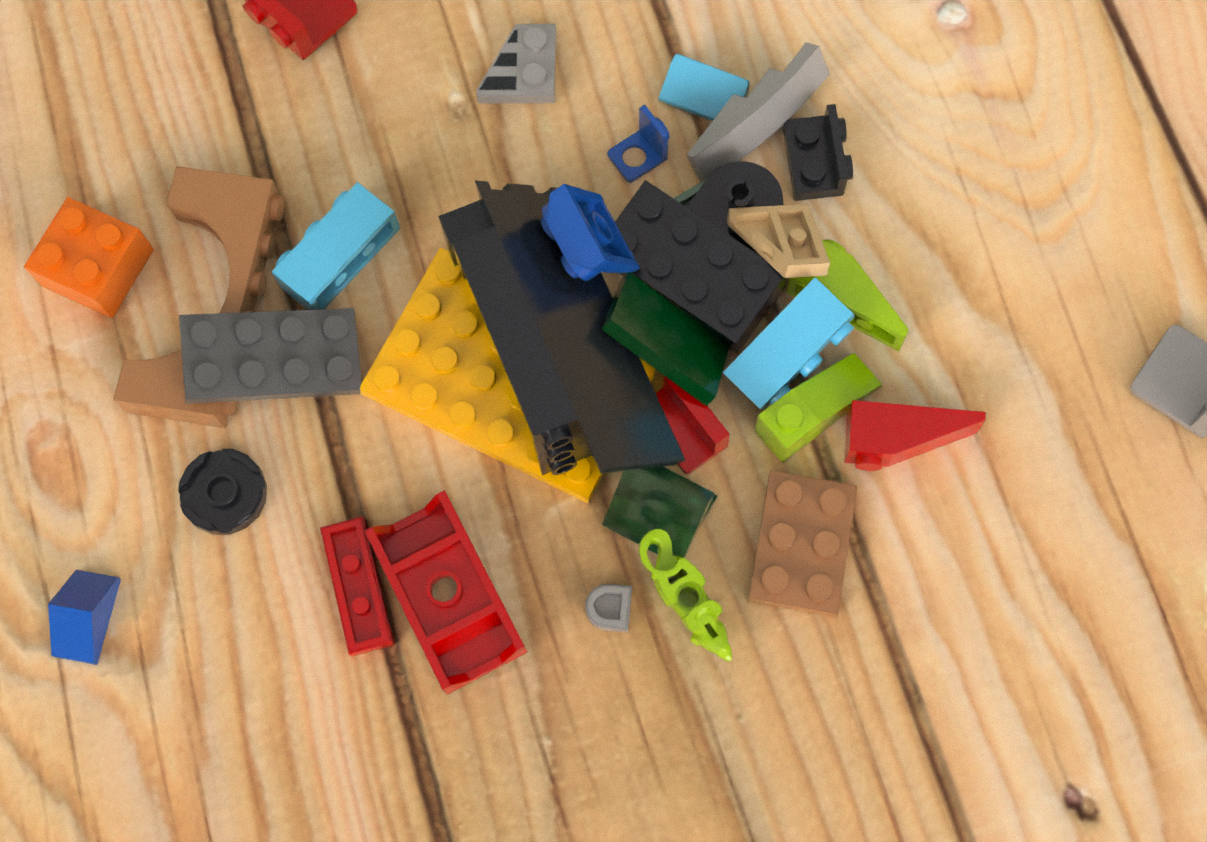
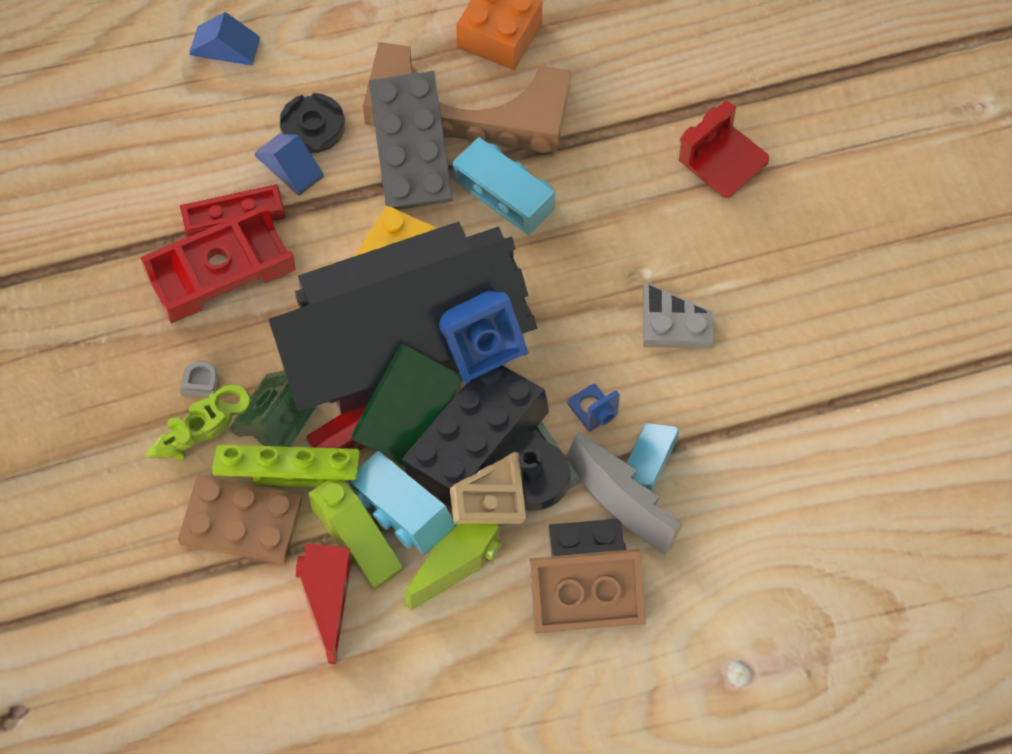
camera: 85 degrees right, 10 degrees down
(282, 516) = (290, 162): none -> blue slope
(746, 478) = (286, 464): none -> lime bracket
(883, 147) = (587, 590): none -> medium nougat plate

